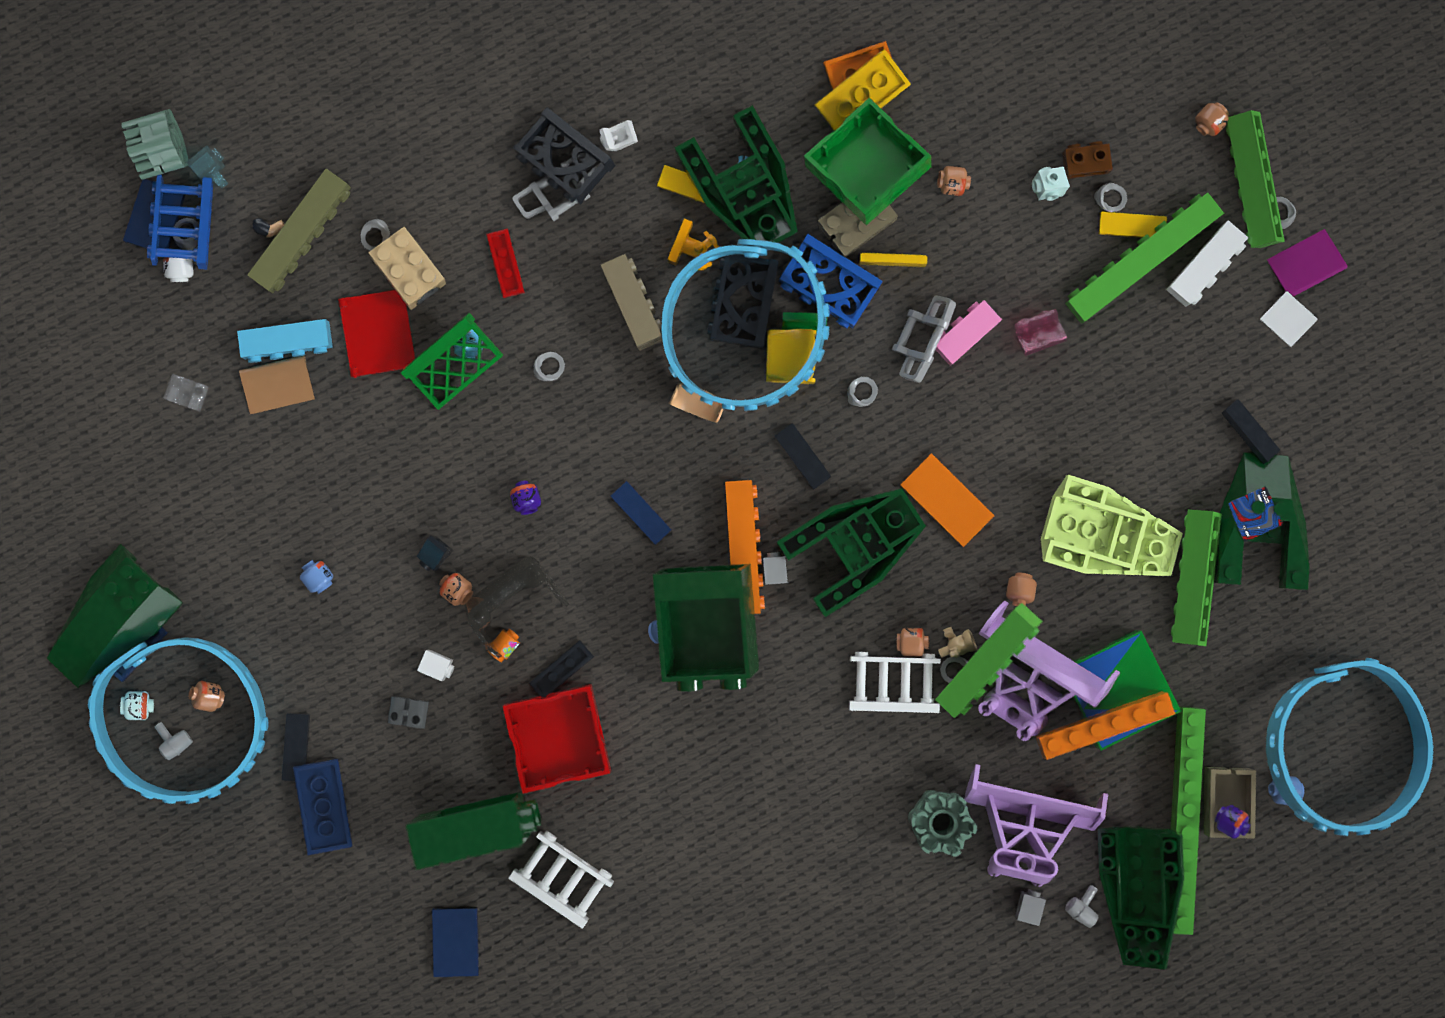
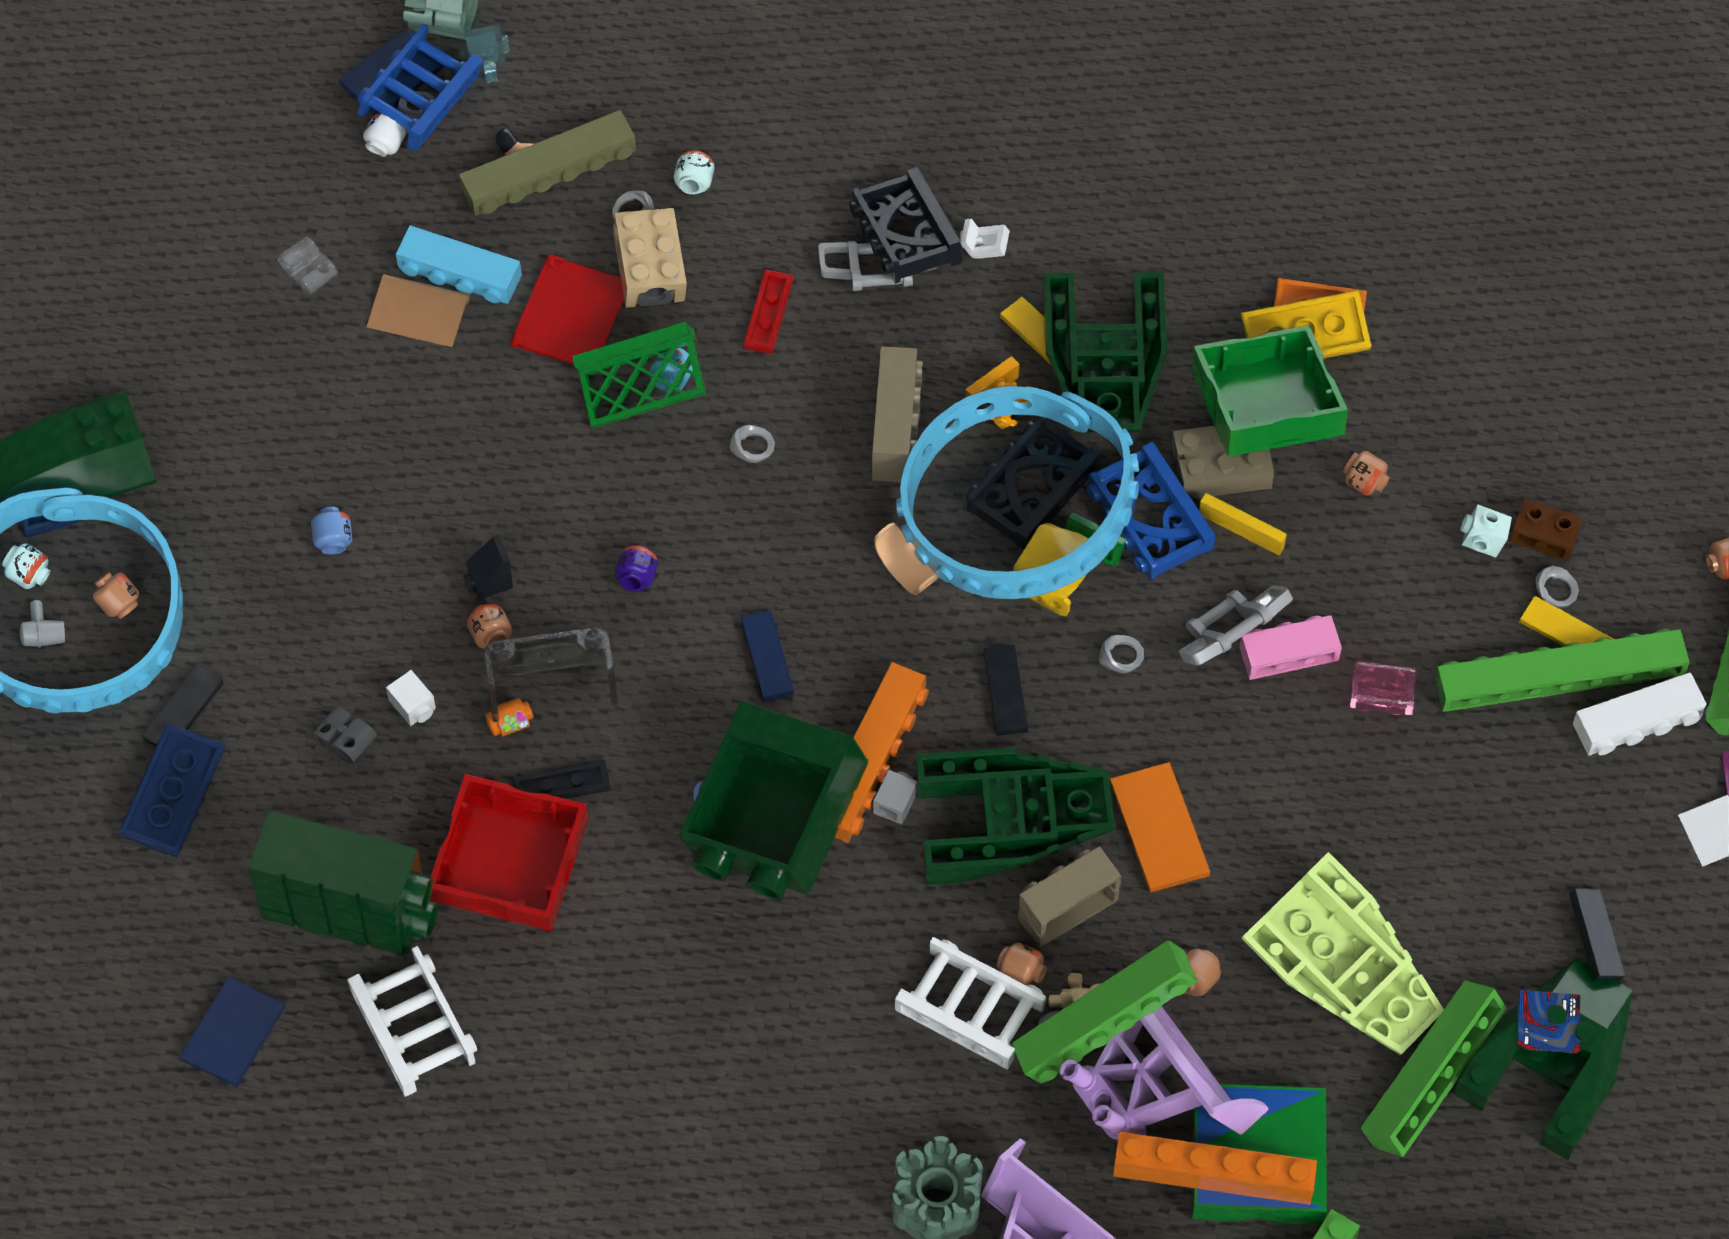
camera: 25 degrees right, 25 degrees down
(399, 186) = (694, 172): none -> light aqua head
(919, 584) = (1068, 896): none -> dark tan piece

